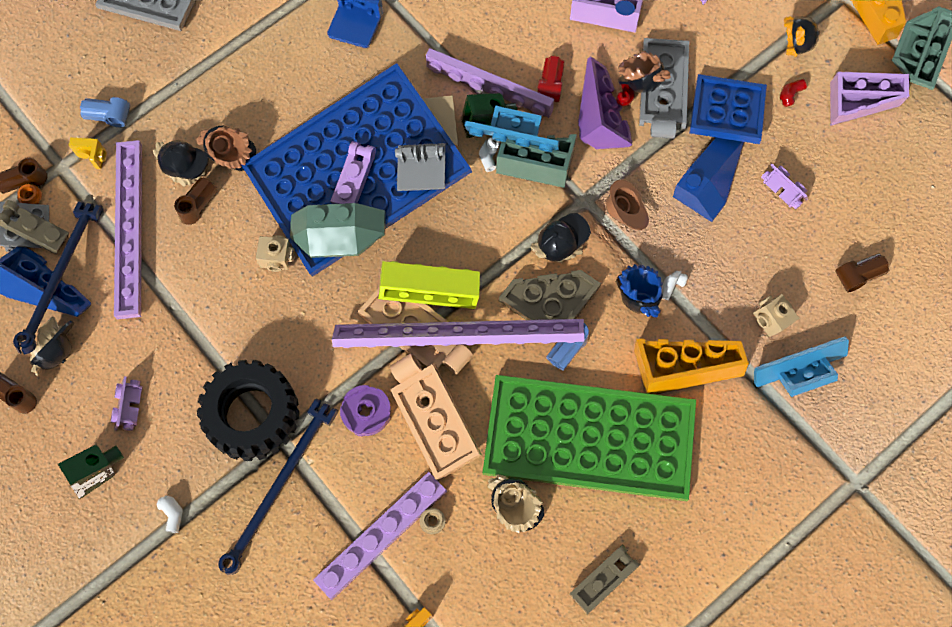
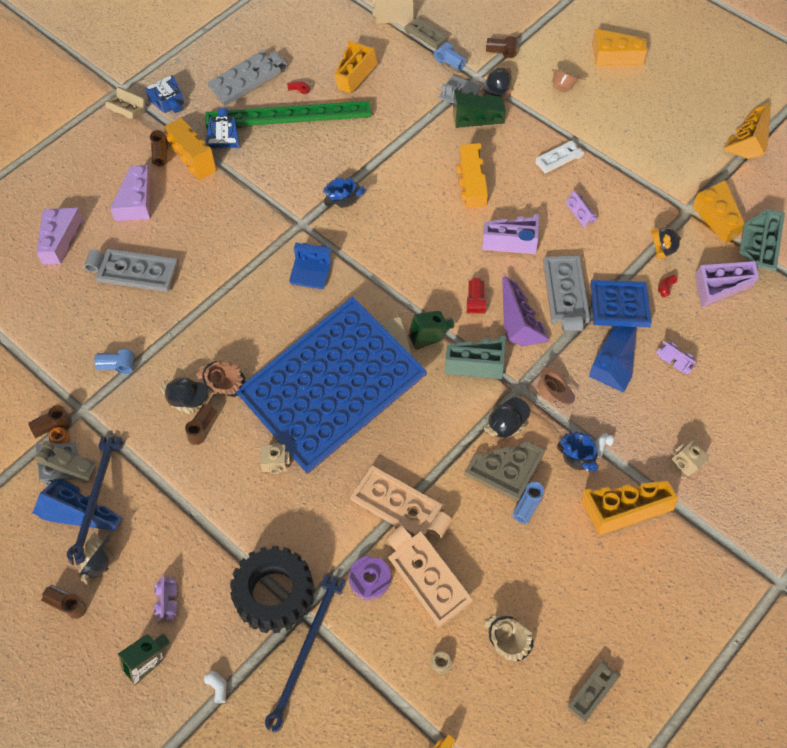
camera: 10 degrees left, 10 degrees down
(89, 149) = (105, 392): yellow bracket -> none
(128, 230) = (147, 456): lavender plate -> none
(337, 229) = (323, 432): sand green wedge -> none
(353, 174) = (331, 389): lavender plate -> none
(379, 536) = (398, 682): lavender plate -> none
(421, 167) = (386, 374): light grey hinge -> none
(429, 285) = (407, 468): neon yellow brick -> none
(458, 333) = (438, 503): lavender plate -> none
(487, 152) = (434, 359): white arm -> none
(490, 83) = (426, 304): lavender plate -> none
(515, 126) = (456, 334): dark azure bracket -> none
(590, 437) = (560, 576): bright green plate -> none
(626, 96) = (538, 301): red arm -> none
(643, 72) = (549, 282): nougat hair -> none
(804, 369) = (720, 498): dark azure bracket -> none
(856, 275) = (746, 419): reddish brown piece -> none

